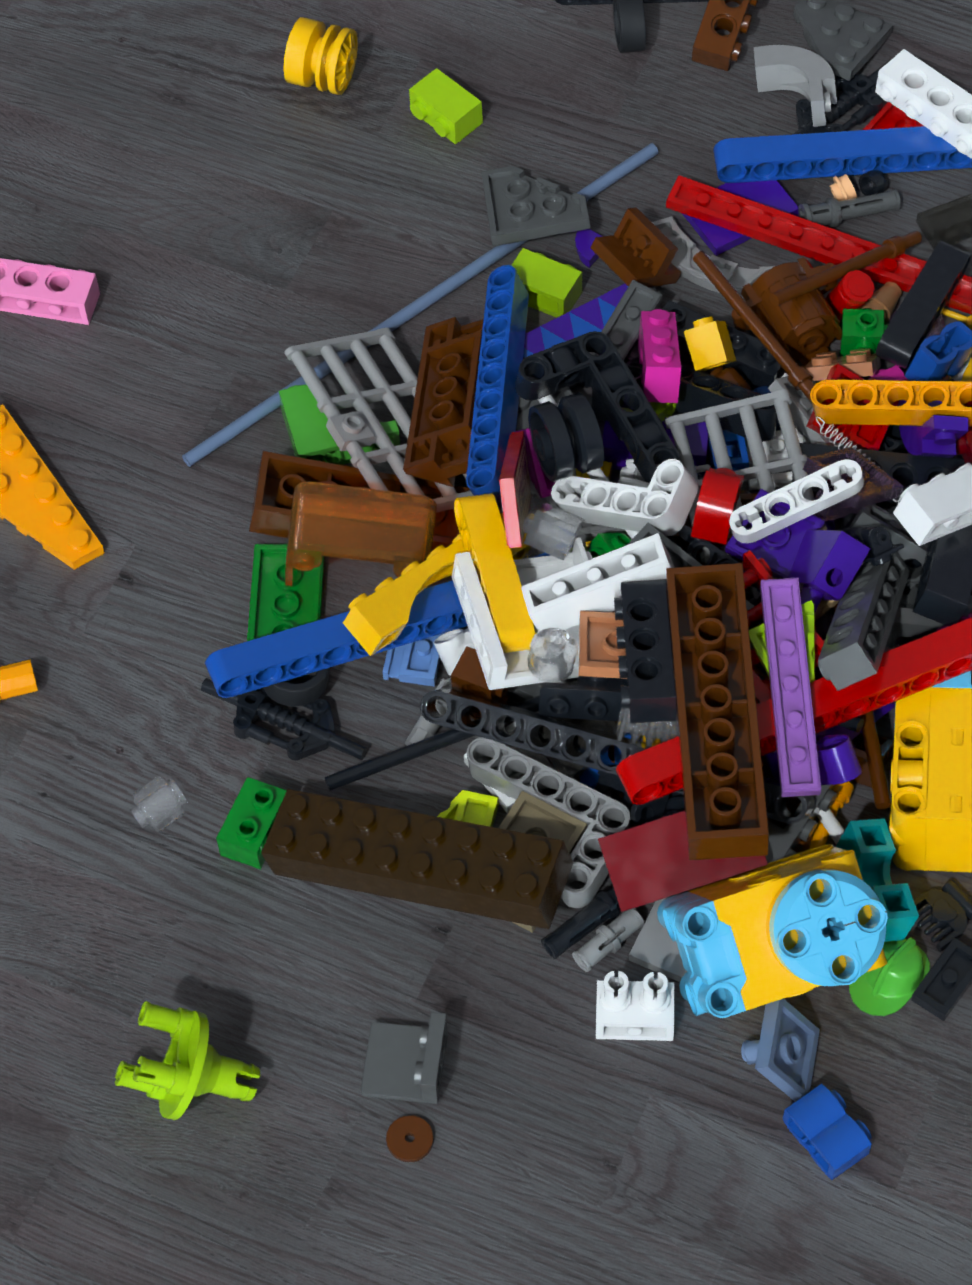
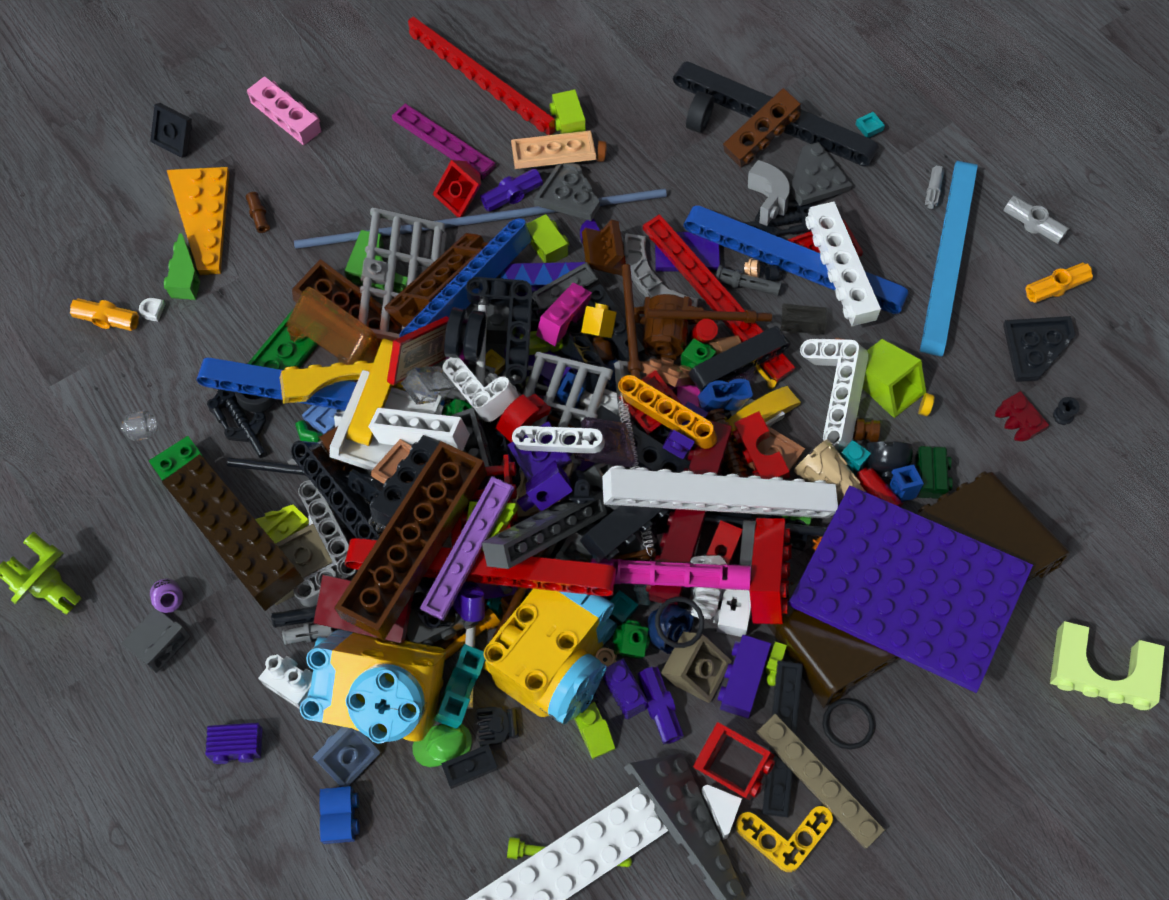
camera: 30 degrees right, 5 degrees up
(42, 648) = (151, 308): none -> white tile
(57, 572) = (182, 275): none -> bright green slope
(98, 443) = (257, 212): none -> reddish brown pin
(281, 111) = (485, 79): none -> red plate
(292, 224) = (442, 139): none -> magenta tile
(320, 55) = (519, 53): yellow wheel -> none
(370, 273) = (458, 186): none -> red slope
(380, 995) = (167, 602): none -> medium lavender head
(405, 1127) = (124, 678): reddish brown wheel -> none
(407, 697) = (305, 434): none -> green arm
(443, 242) = (511, 190): none -> dark purple piece
(460, 163) = (553, 149): none -> light nougat tile
(528, 134) = (601, 151): none -> dark orange tile
(552, 654) = (367, 455): clear head -> none
(620, 1124) = (234, 742): none -> dark purple brick

